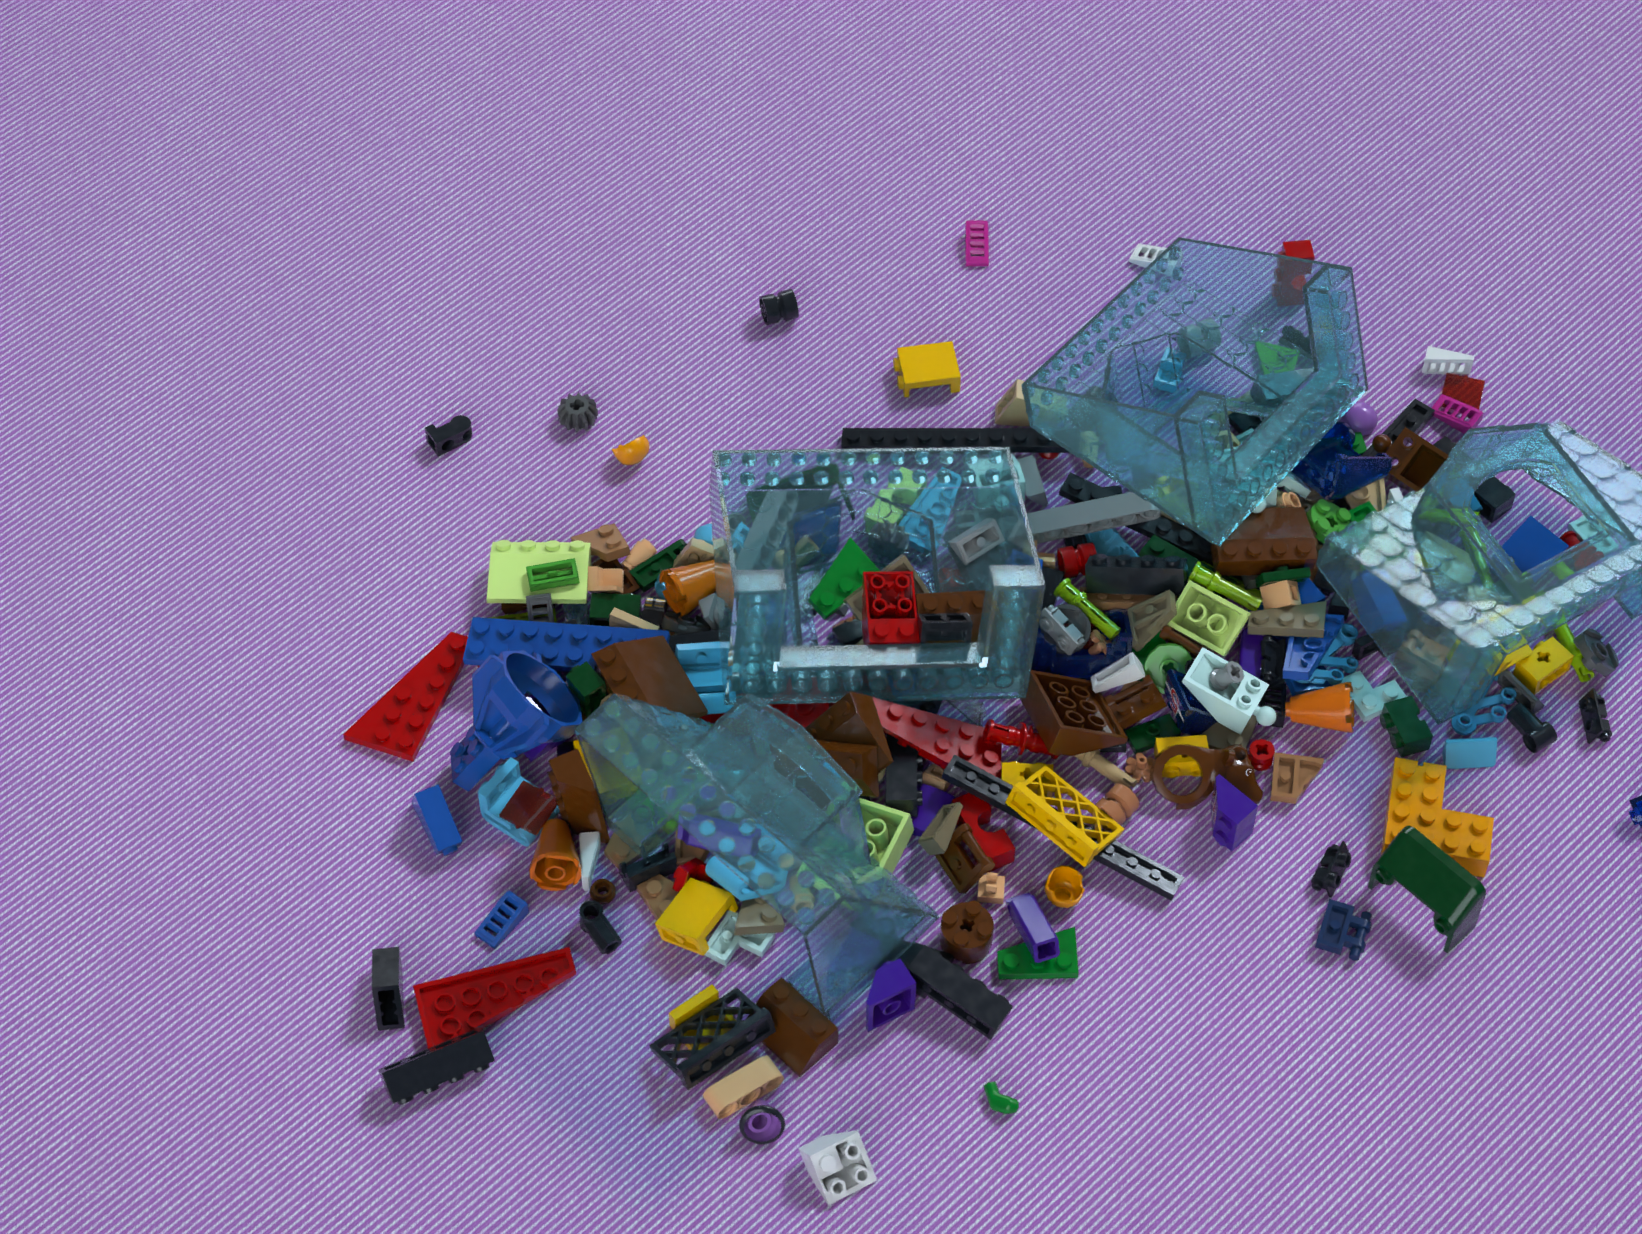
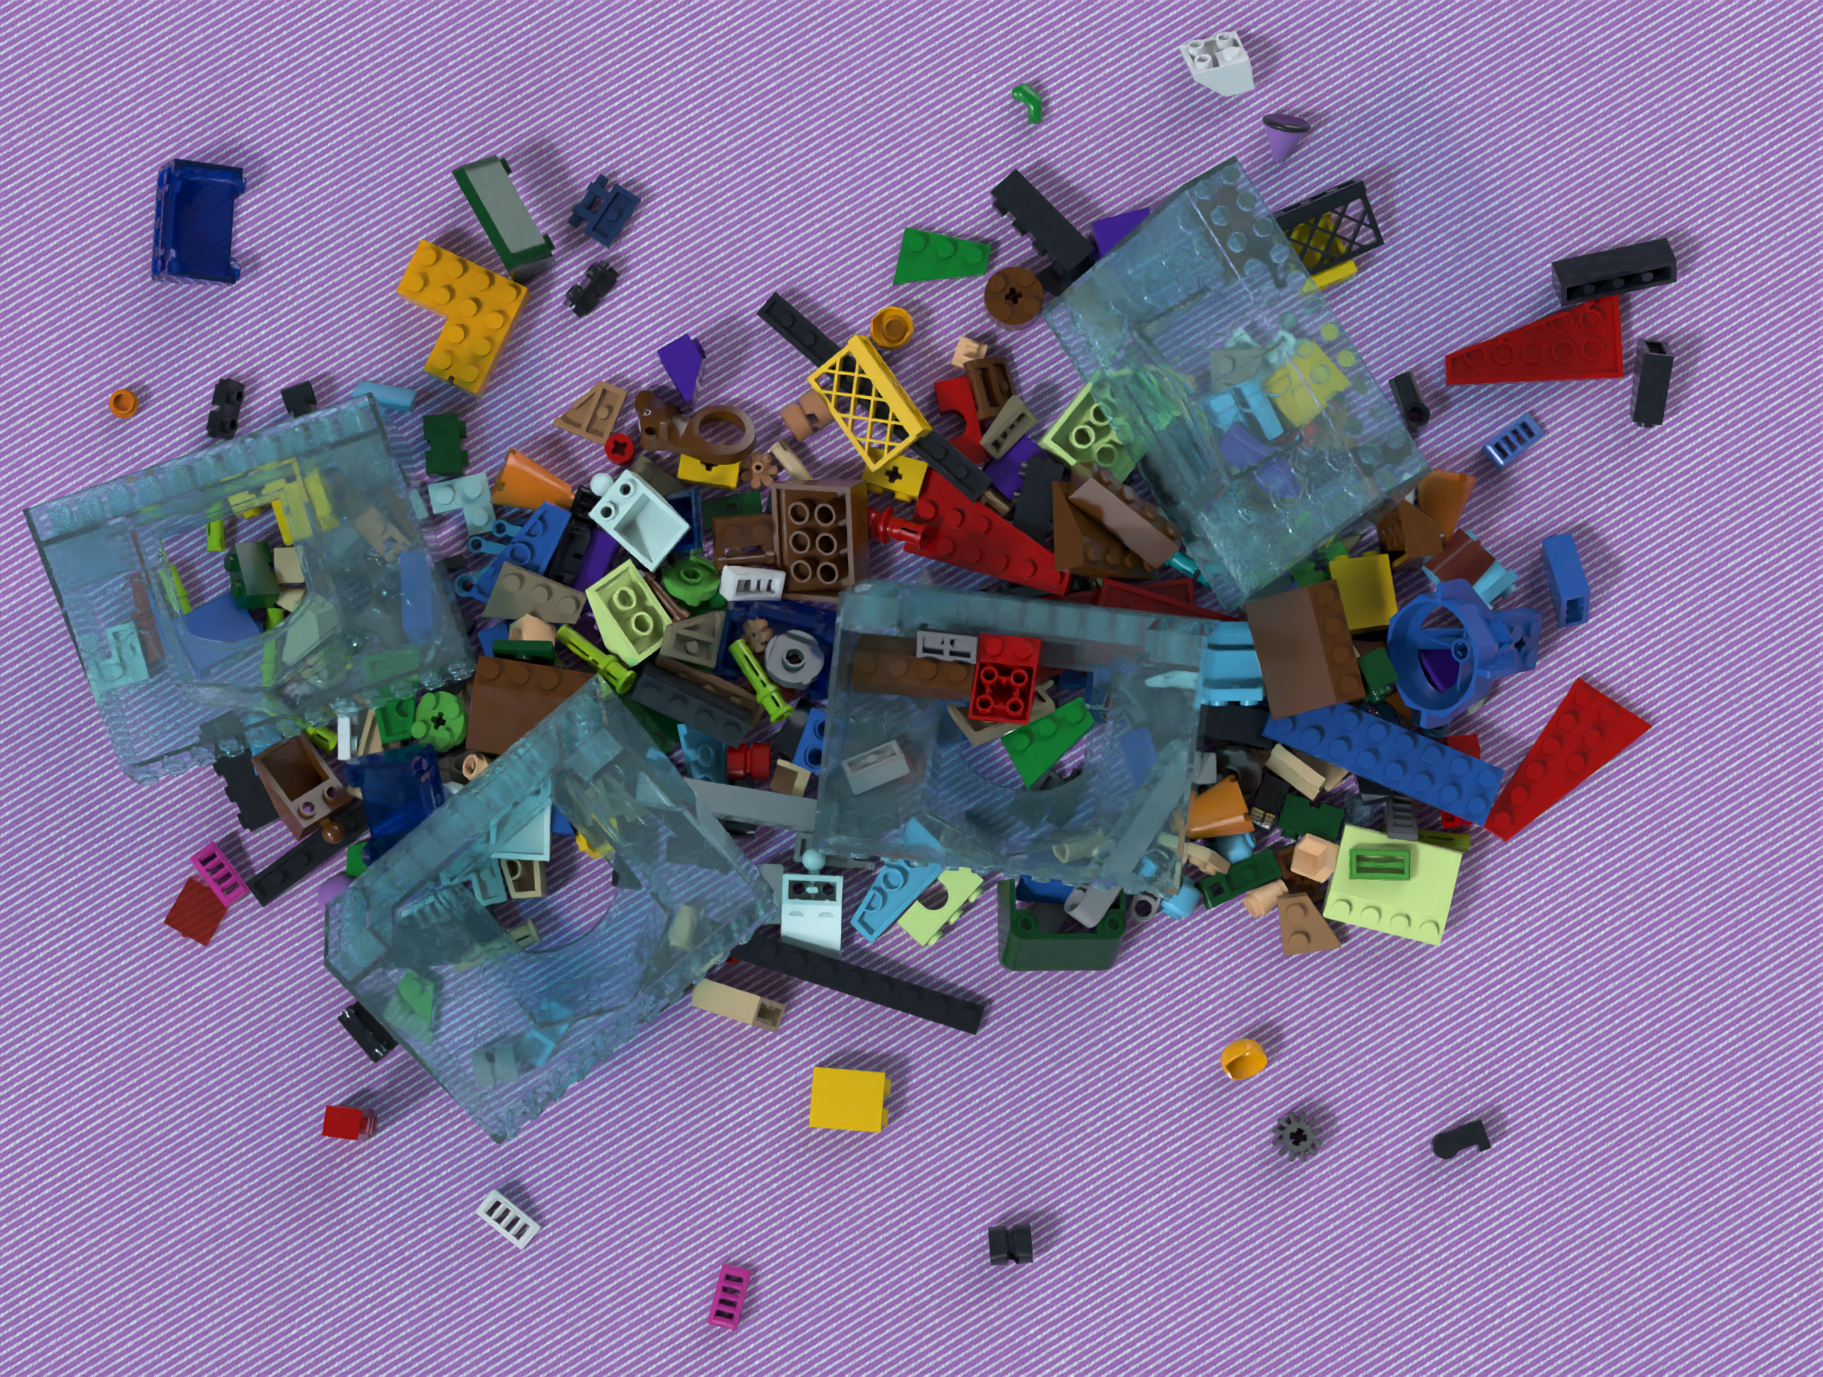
camera: 165 degrees left, 30 degrees up
(743, 1087) = (1295, 176): light nougat beam -> none
(1033, 927) = (940, 289): dark purple piece -> none
(1053, 622) = (809, 659): light grey hinge -> none
(1229, 674) = (635, 529): light grey bush -> none
(1443, 361) = (211, 960): white slope -> none

